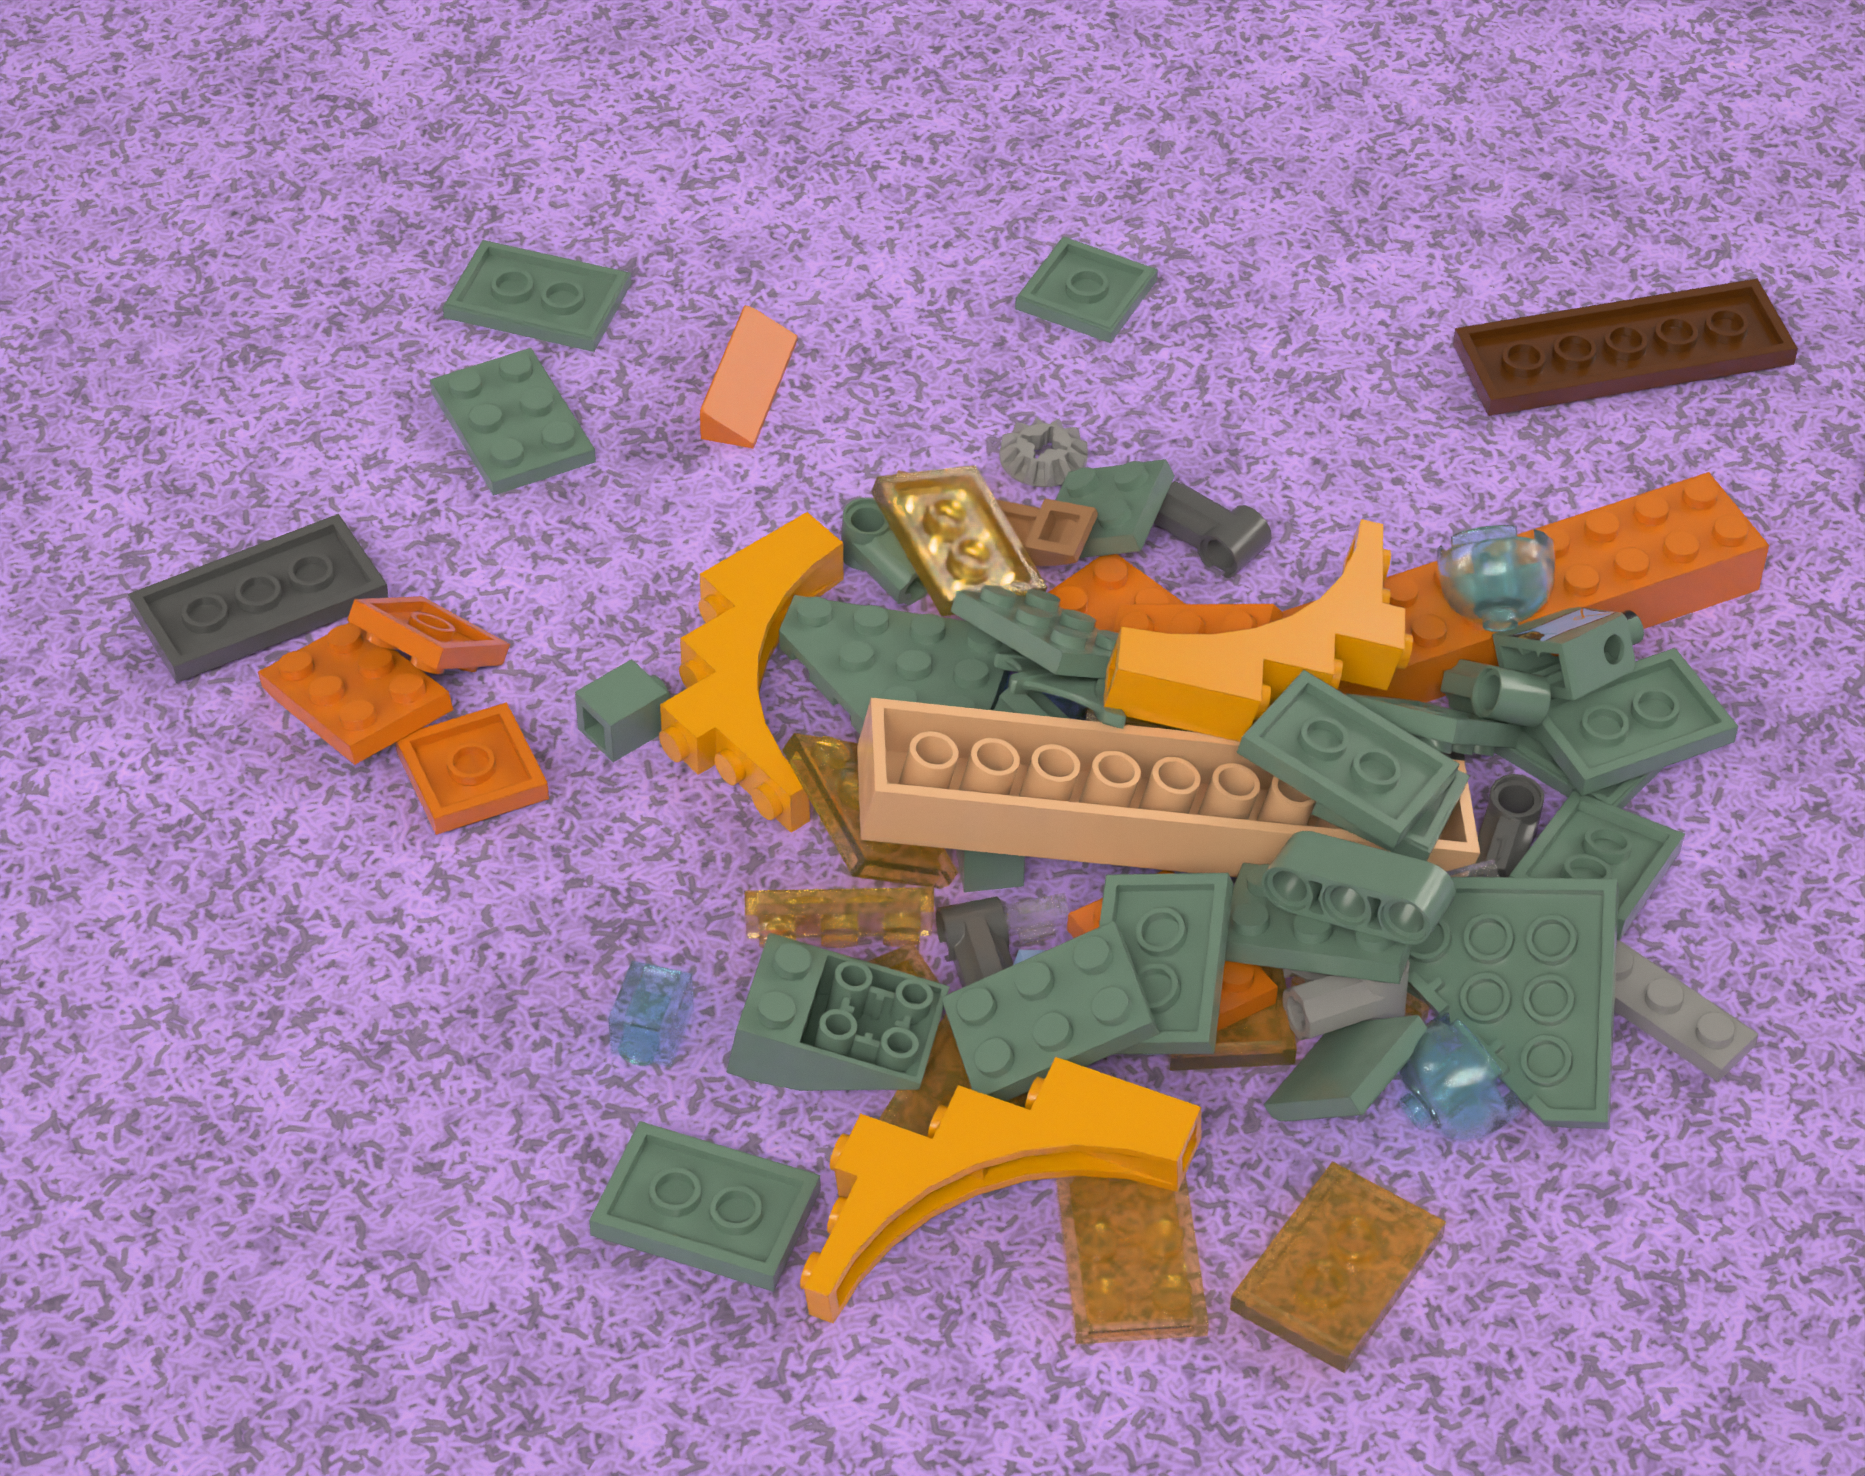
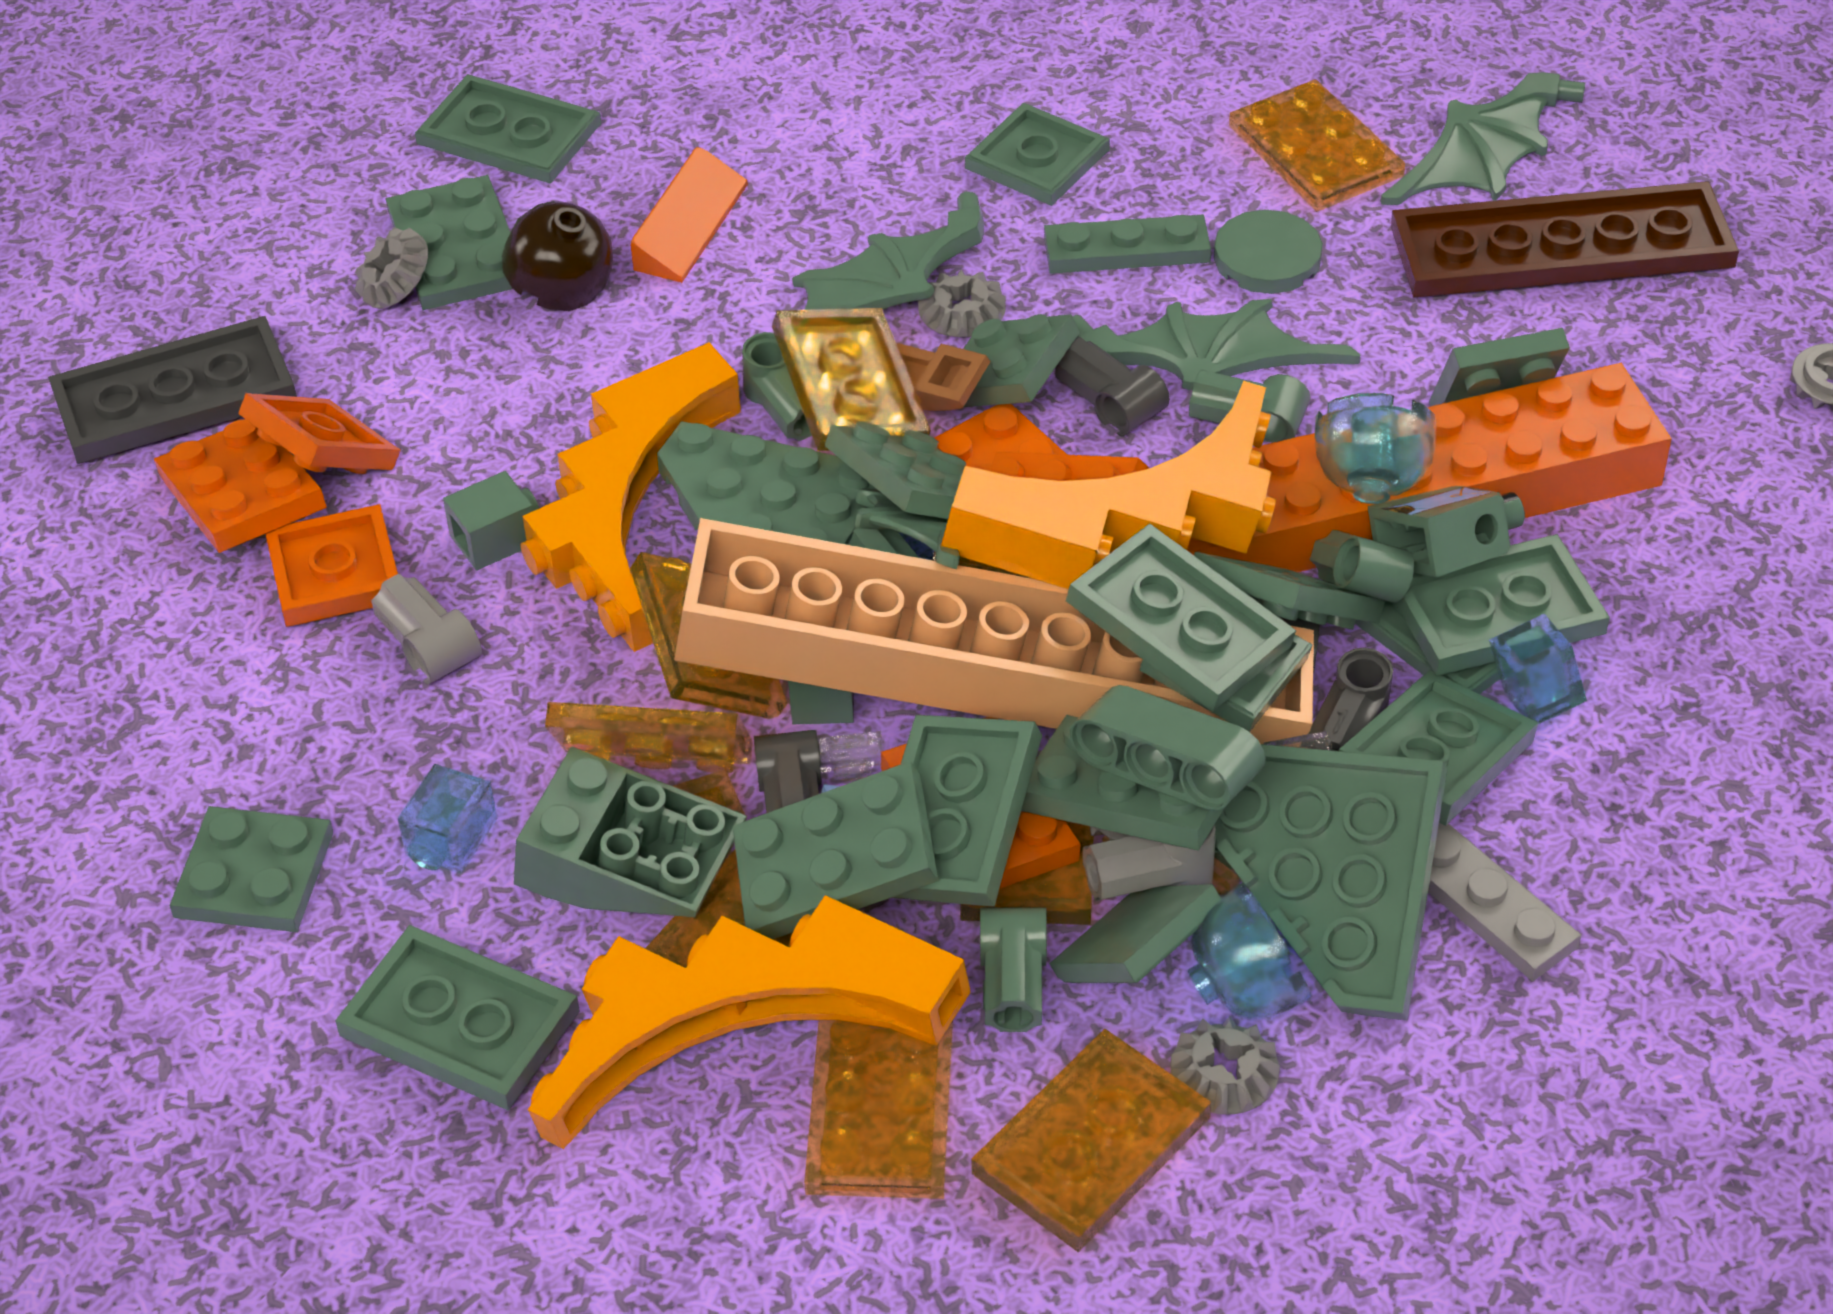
camera: 10 degrees right, 0 degrees up
(463, 1080) = (252, 869): none -> sand green plate
(467, 465) = (392, 268): none -> light grey gear
(587, 832) = (428, 633): none -> light grey piece
(628, 430) = (558, 255): none -> dark brown cylinder
(967, 420) = (894, 267): none -> sand green animal
(1195, 379) = (1127, 243): none -> sand green plate
(1231, 1104) = (1013, 957): none -> sand green piece
(1302, 478) = (1213, 343): none -> sand green animal
(1330, 533) = (1284, 399): none -> sand green piece
(1337, 377) = (1268, 251): none -> sand green tile
(1364, 262) = (1316, 145): none -> clear yellow plate
(1462, 1209) = (1255, 1072): none -> light grey gear
(1532, 246) = (1487, 139): none -> sand green animal
(1593, 485) = (1500, 365): none -> sand green plate
(1678, 782) = (1538, 669): none -> clear light blue brick

